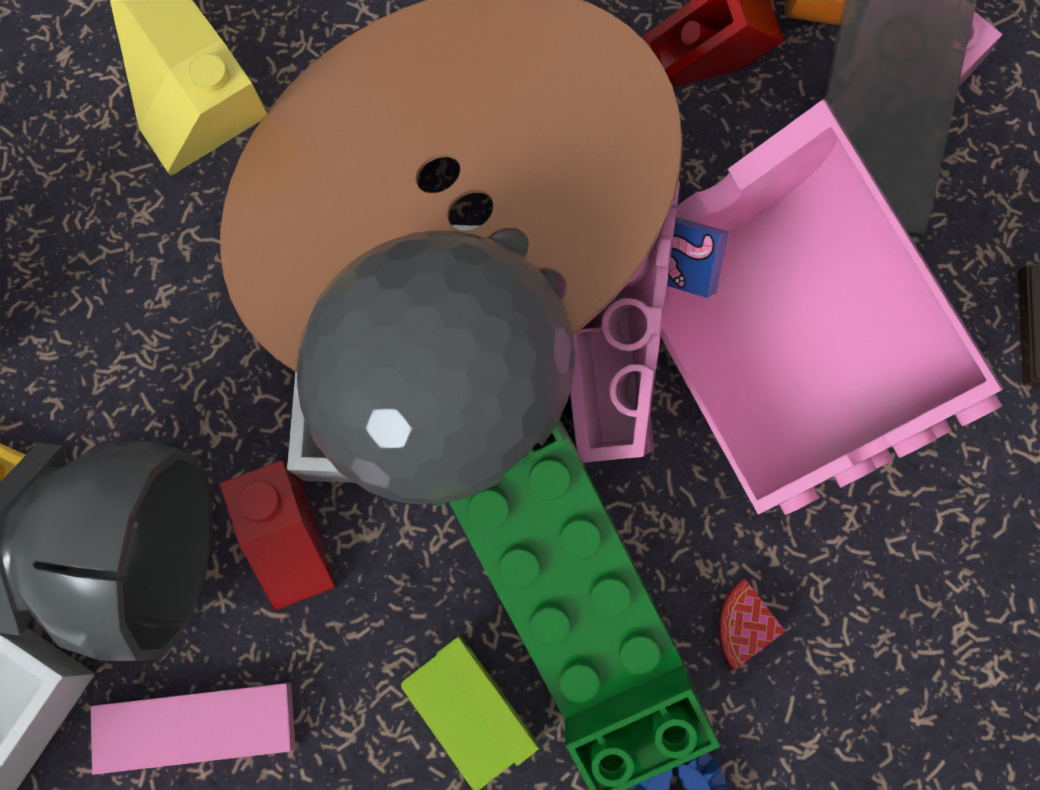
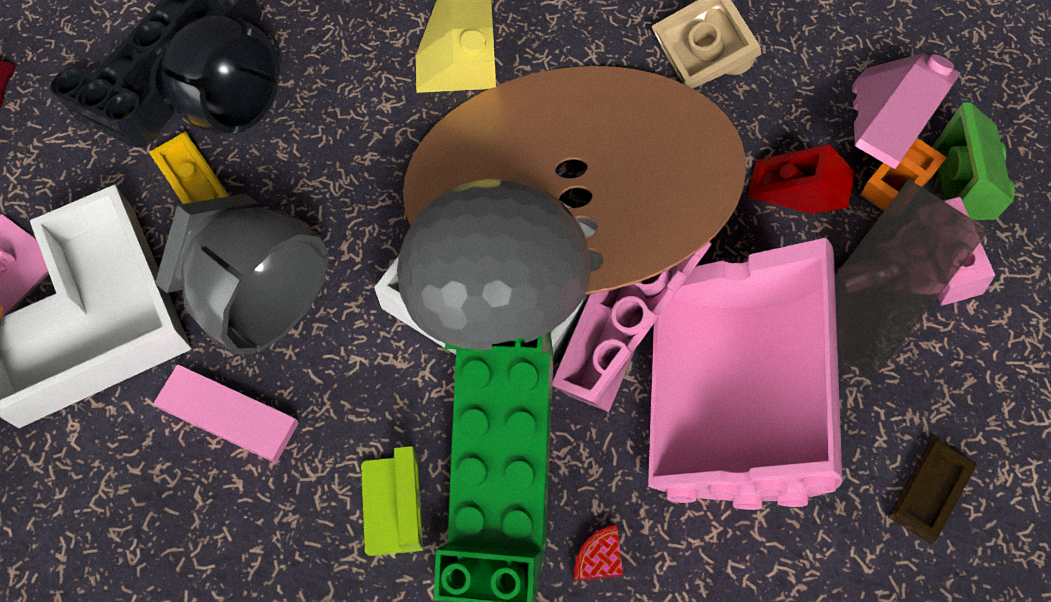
camera: 30 degrees right, 10 degrees down
(278, 534) = (346, 328): red slope -> none
(696, 257) = (697, 298): blue tile -> none

